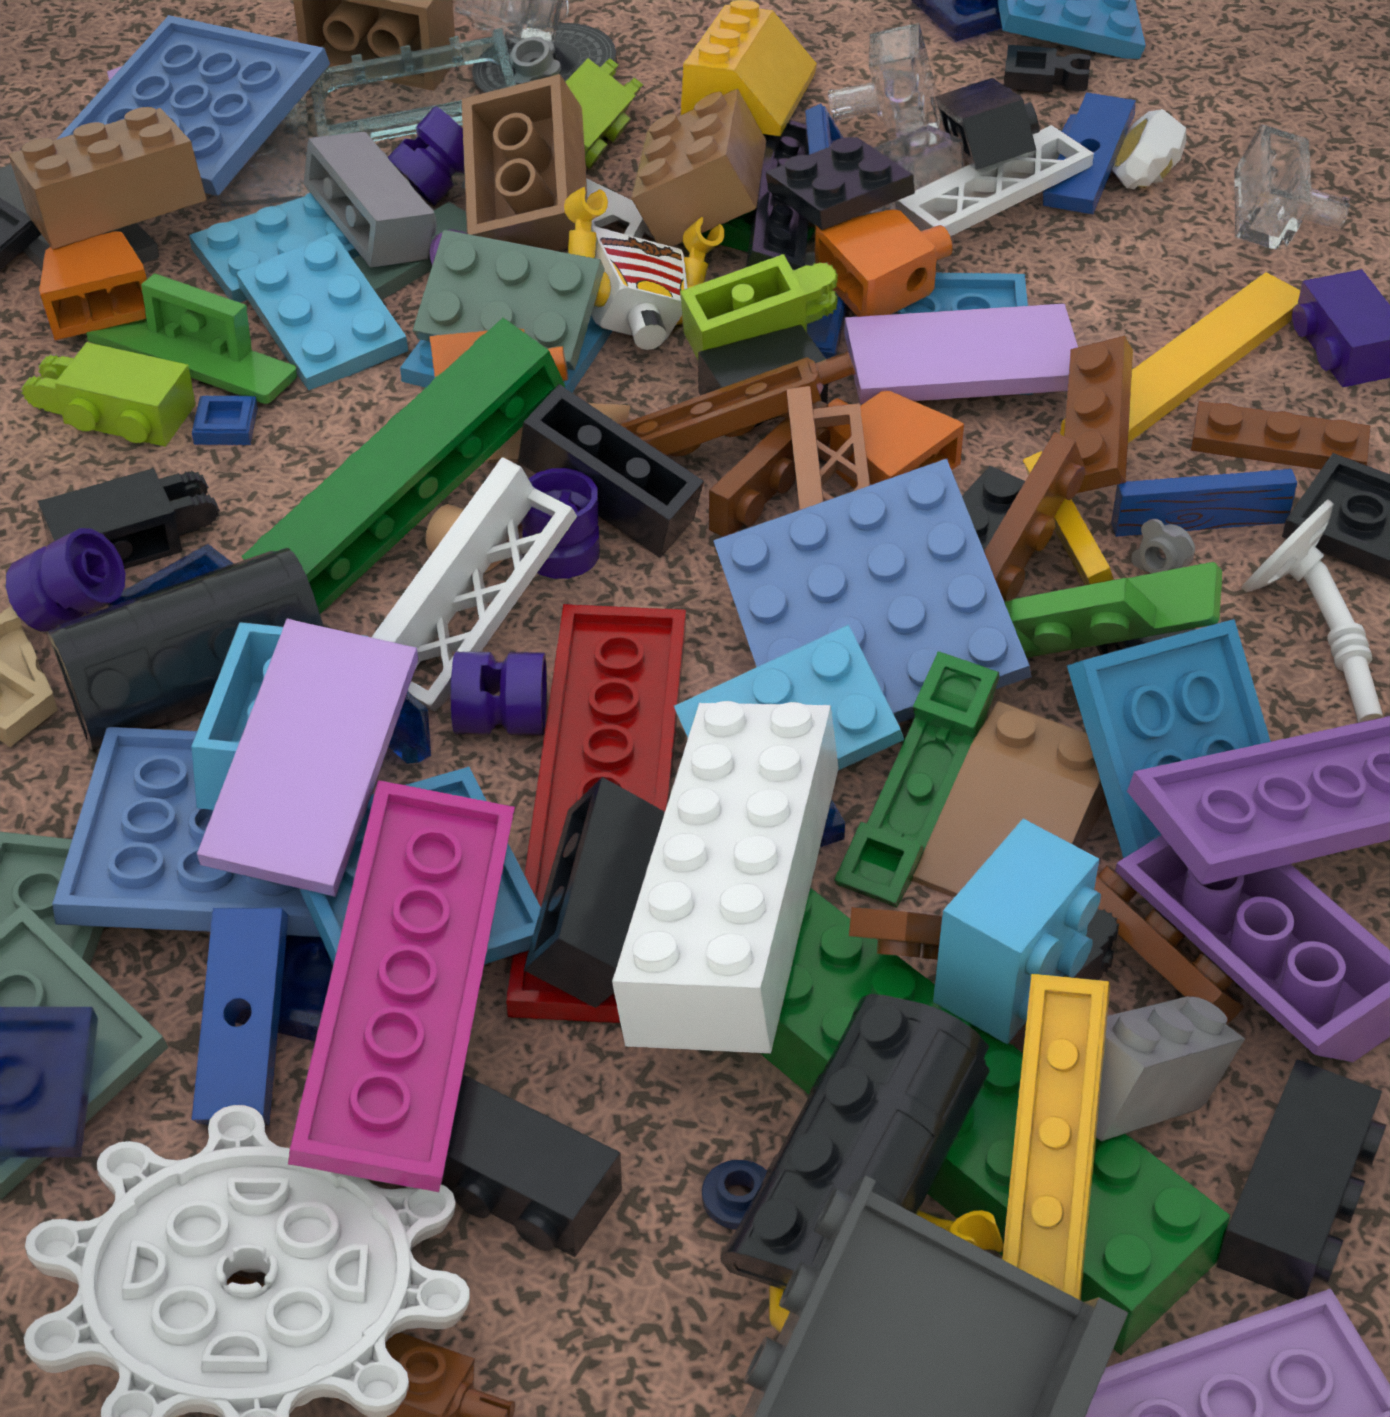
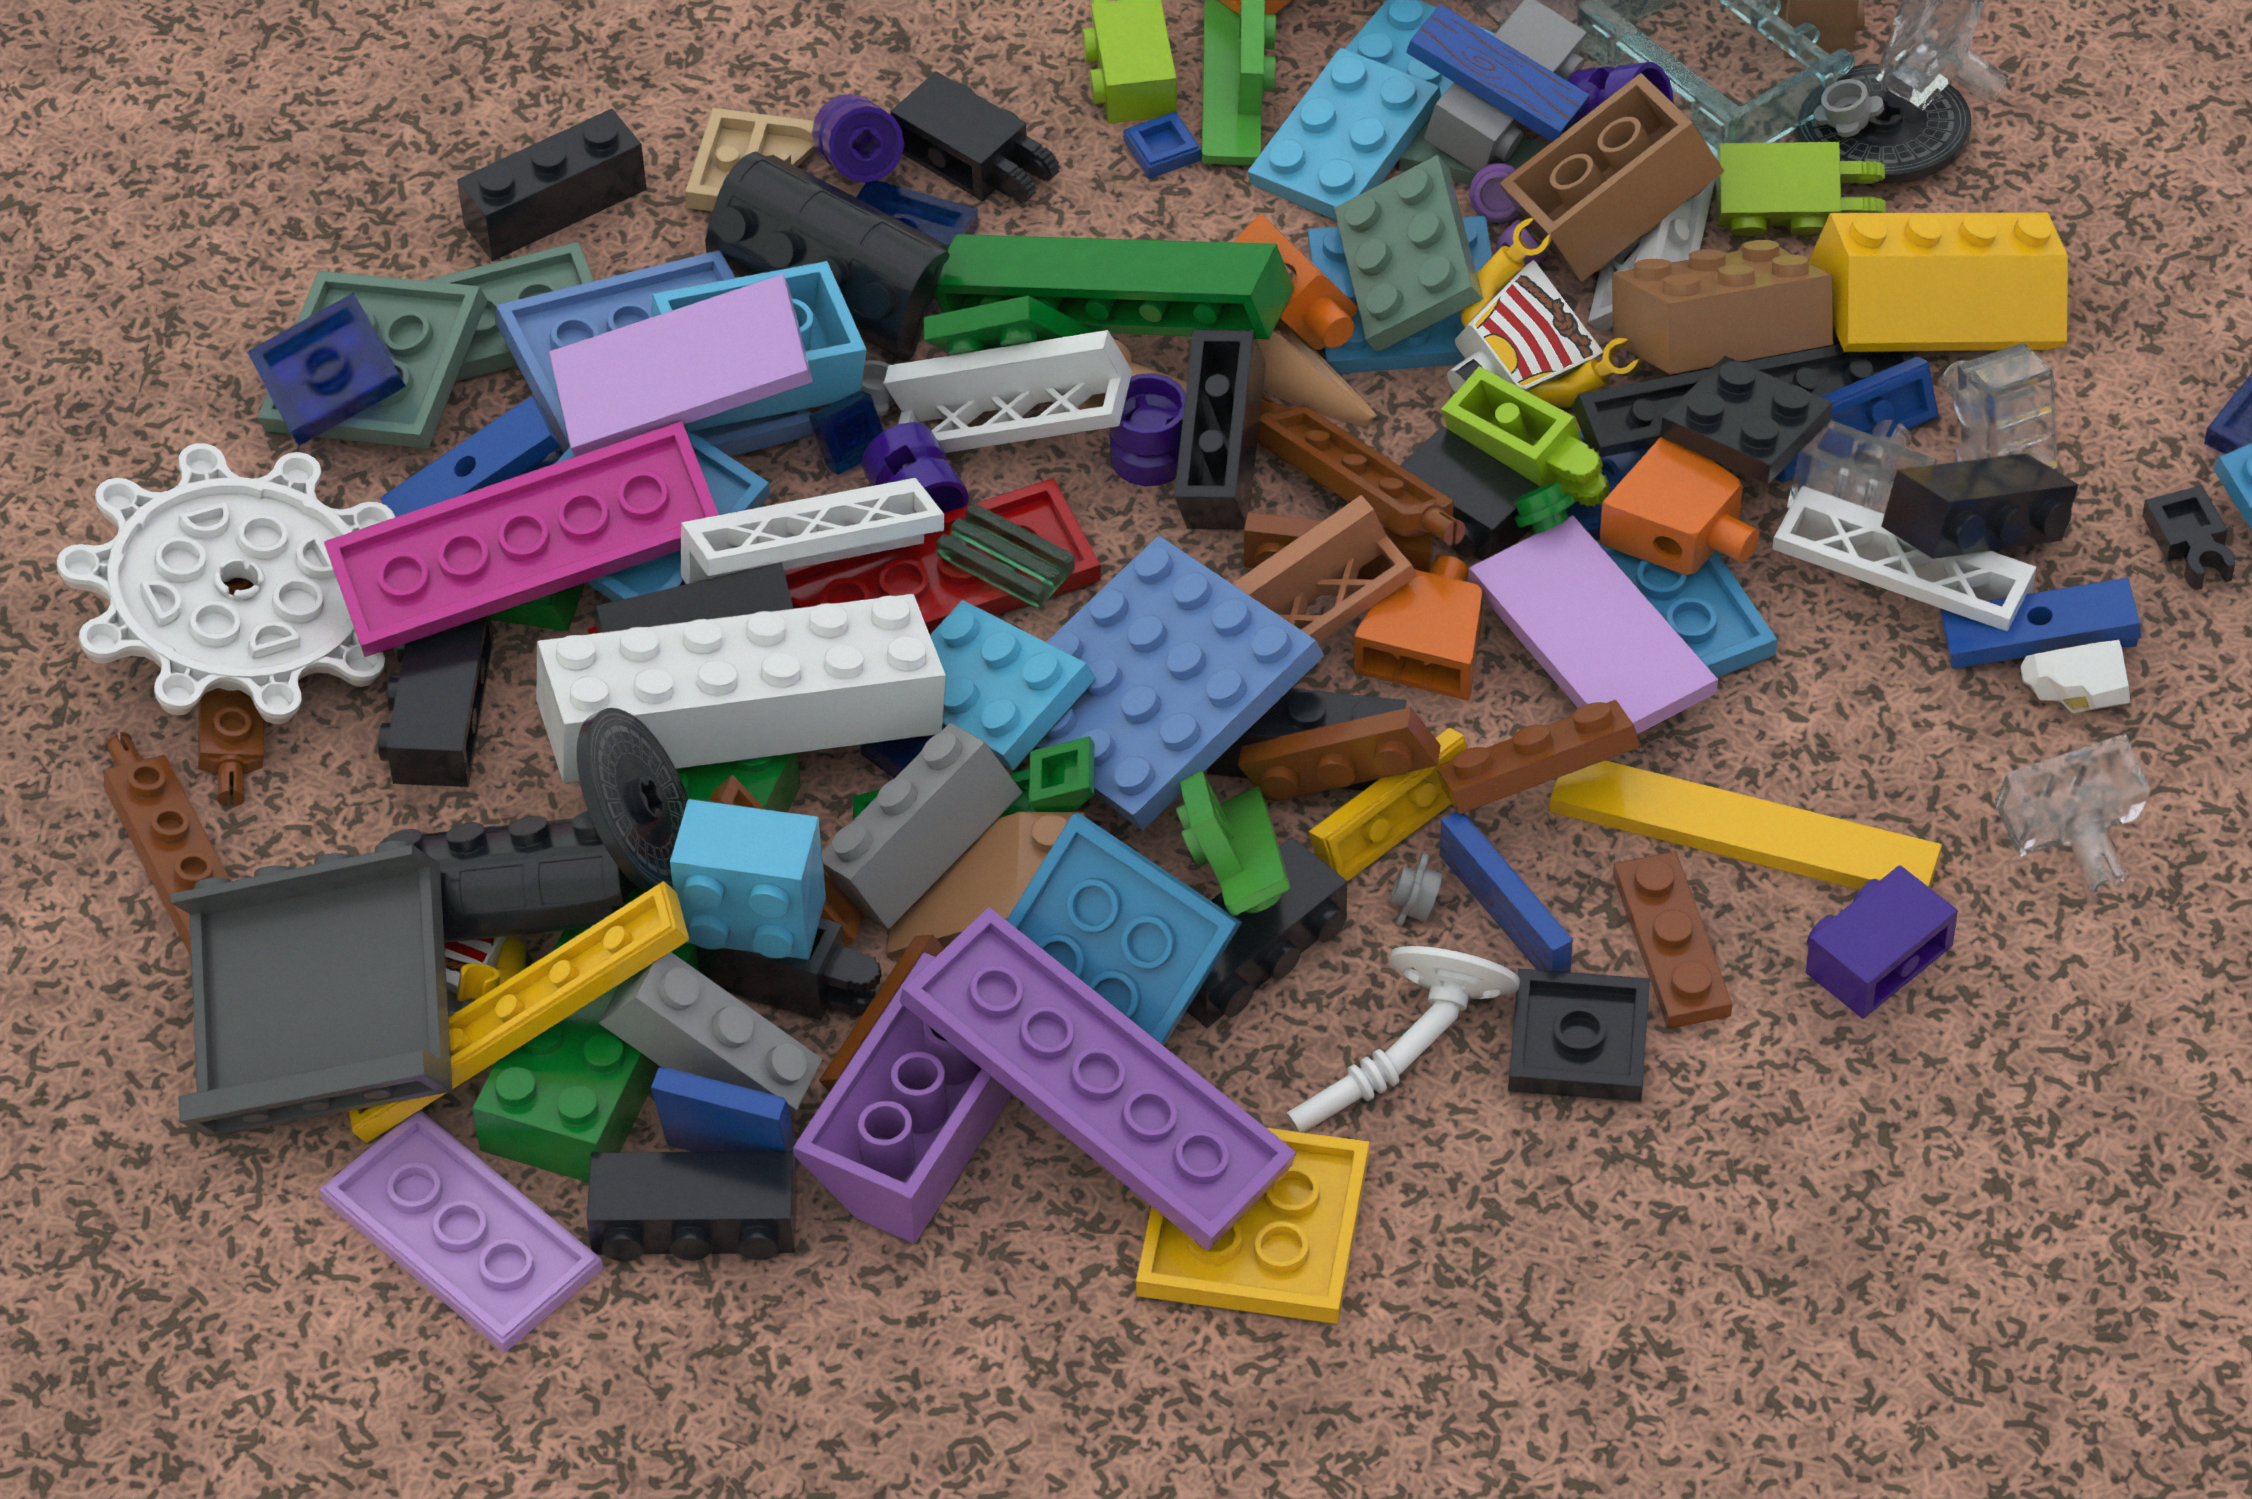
camera: 65 degrees right, 5 degrees up
(378, 177) = (1497, 73): none -> blue tile
(405, 552) = (998, 326): none -> green plate
(547, 755) = (809, 530): none -> white fence
(636, 652) = (1012, 549): none -> clear green tile
(832, 324) = (1543, 507): none -> green plate
(884, 972) = (631, 794): none -> black piece
(935, 800) = (919, 824): none -> light grey brick
(1239, 1096) = (720, 1116): none -> blue tile

